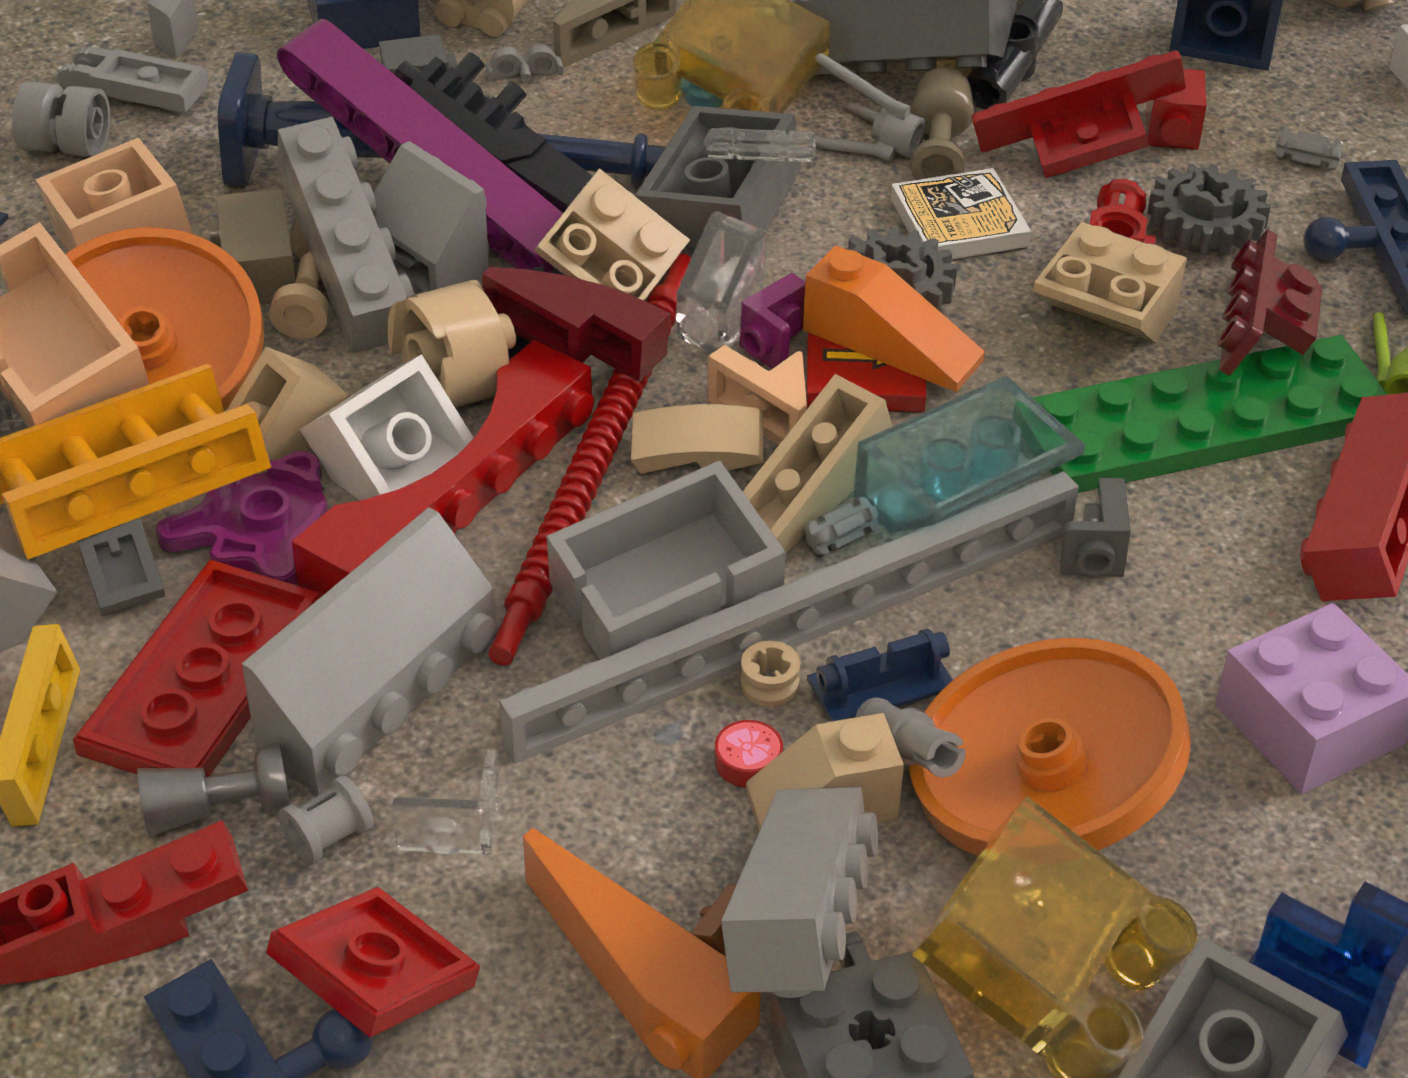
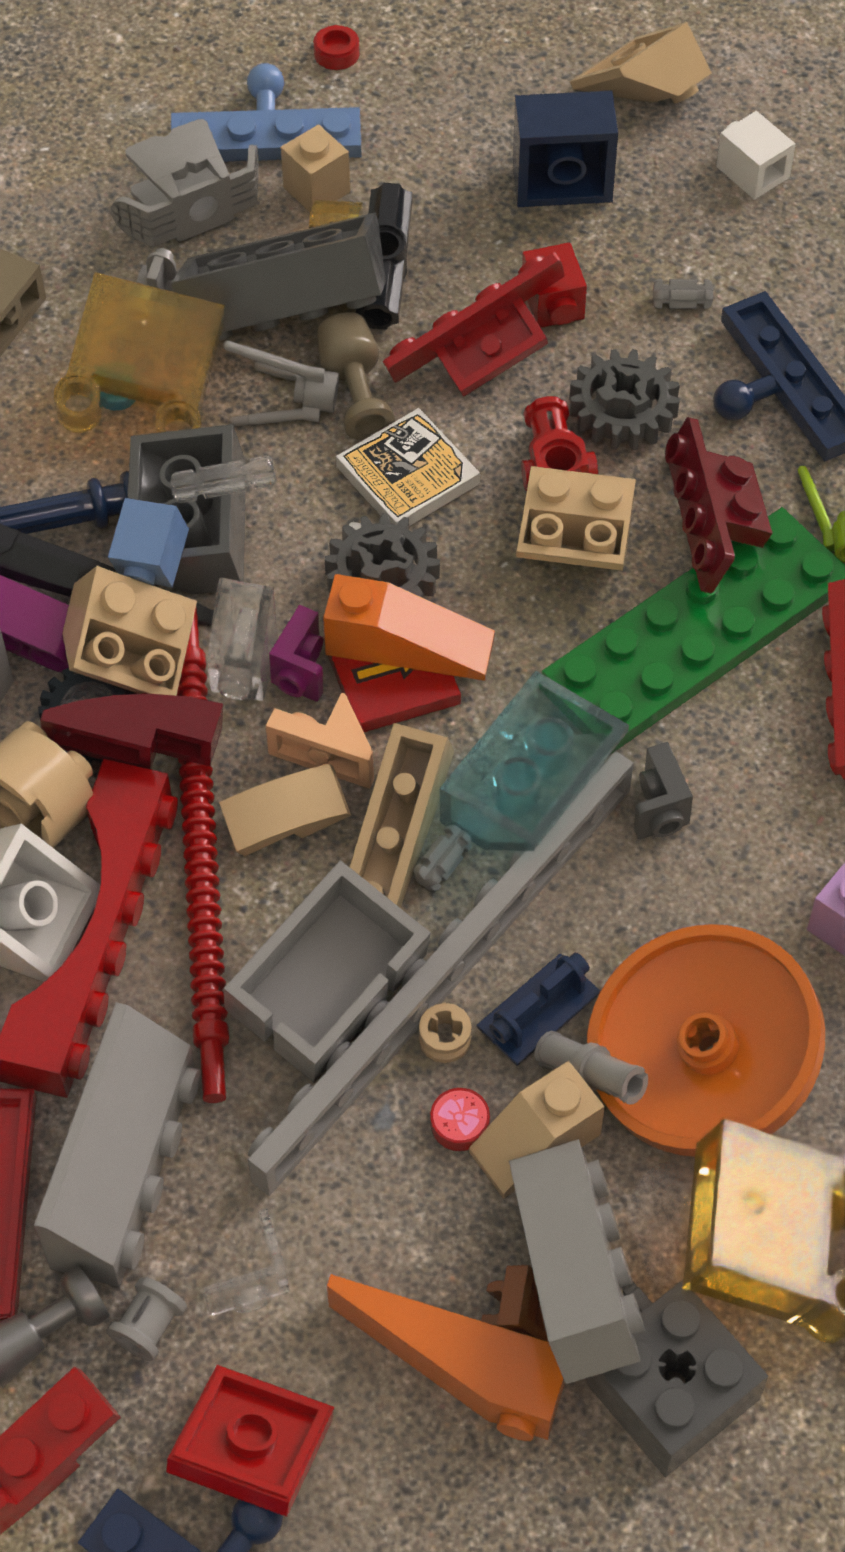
camera: 20 degrees left, 15 degrees up
(663, 170) = (148, 542): none -> medium blue brick

